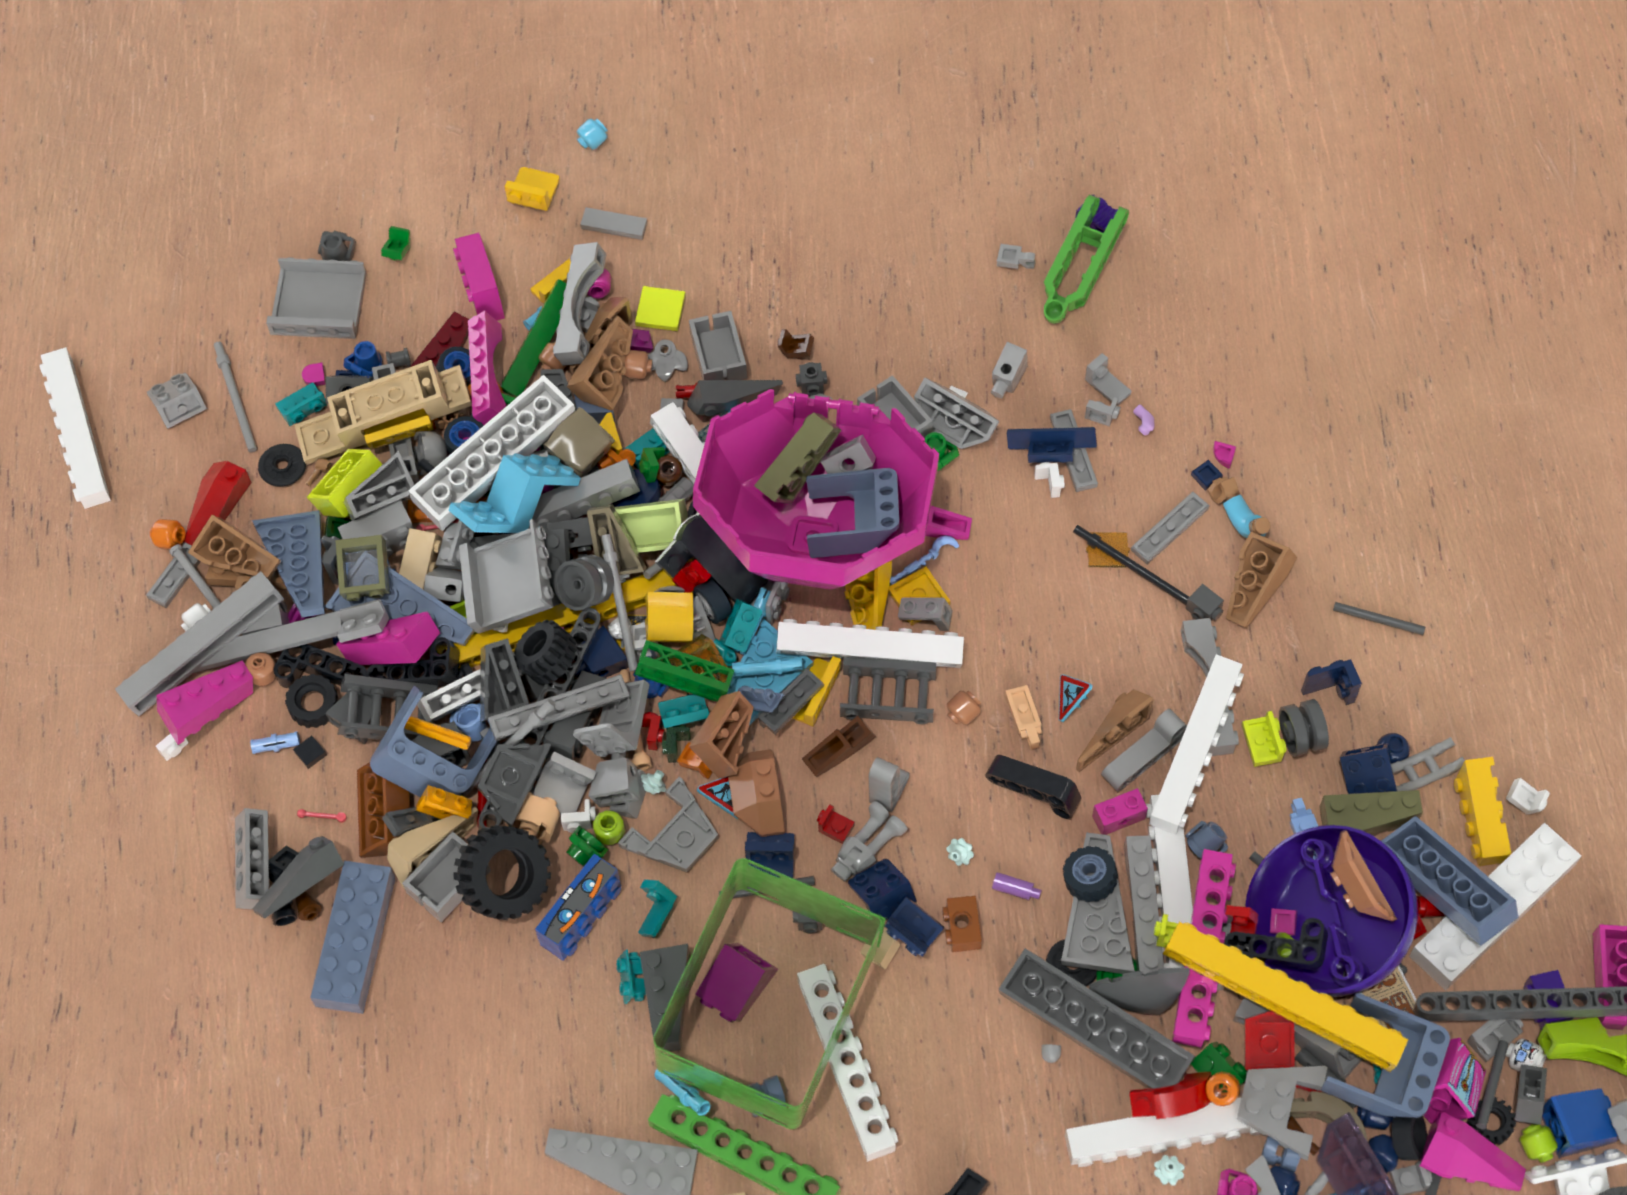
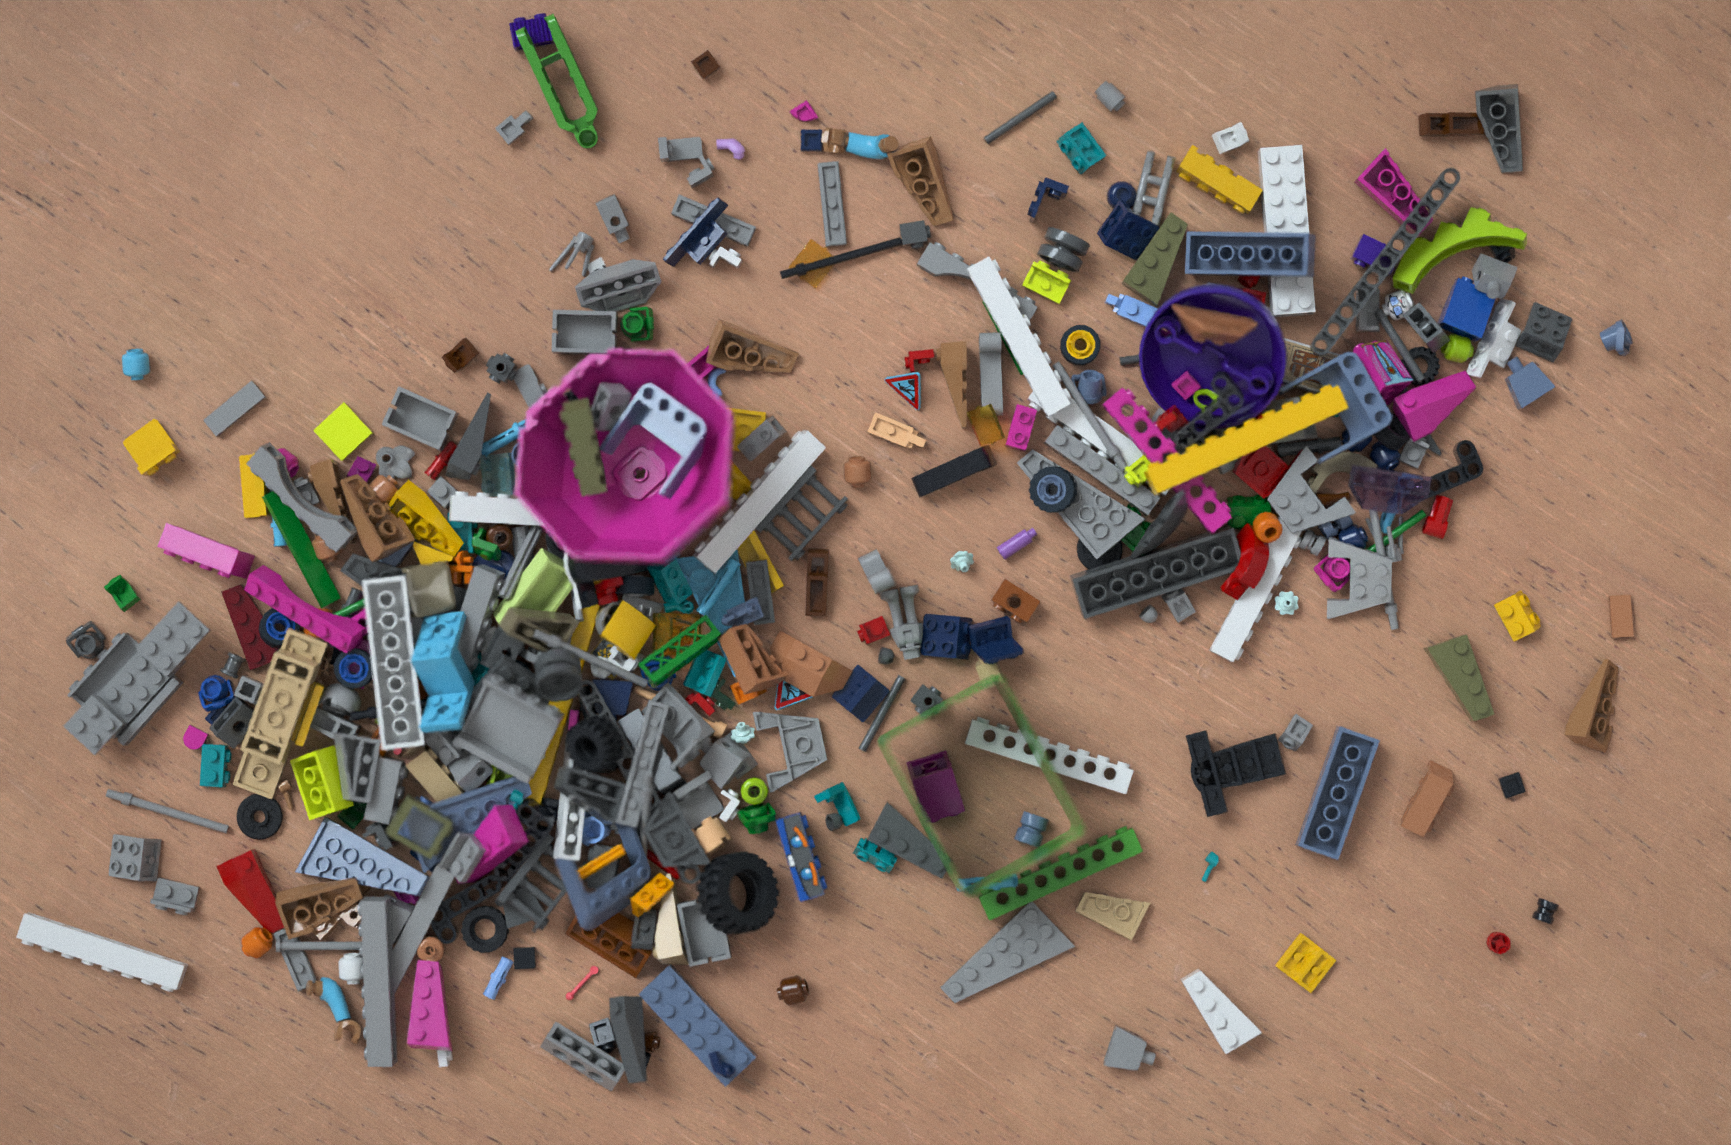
camera: 50 degrees left, 25 degrees up
(162, 621) = (332, 994): none -> piece
(165, 450) = (175, 896): none -> light grey bracket
(325, 976) = (720, 1067): none -> dark blue arm
(357, 301) = (138, 680): none -> light grey bracket
(448, 996) = (793, 990): none -> reddish brown head
(449, 630) = (516, 797): none -> teal hand
(634, 918) = (833, 821): none -> dark grey hinge
(636, 405) = (424, 518): none -> yellow wedge
(642, 497) = (520, 562): none -> light grey axle
(821, 852) = (885, 656): none -> dark grey hinge
(965, 367) = (581, 244): none -> light grey plant
(987, 545) = (743, 350): none -> medium nougat wedge
(1083, 1070) = (1178, 604): none -> light grey bracket
(1097, 779) = (985, 424): none -> clear yellow piece
(1107, 685) = (922, 356): none -> red bracket
(1170, 898) = (1112, 450): none -> light grey bar
(1192, 354) = (705, 64): none -> reddish brown plate
(1235, 795) = (1084, 333): none -> wheel
(1244, 1148) = (1307, 540): none -> light grey wheel
(1401, 682) = (1080, 148): none -> teal bracket
(1465, 673) = (1110, 96): none -> light grey brick

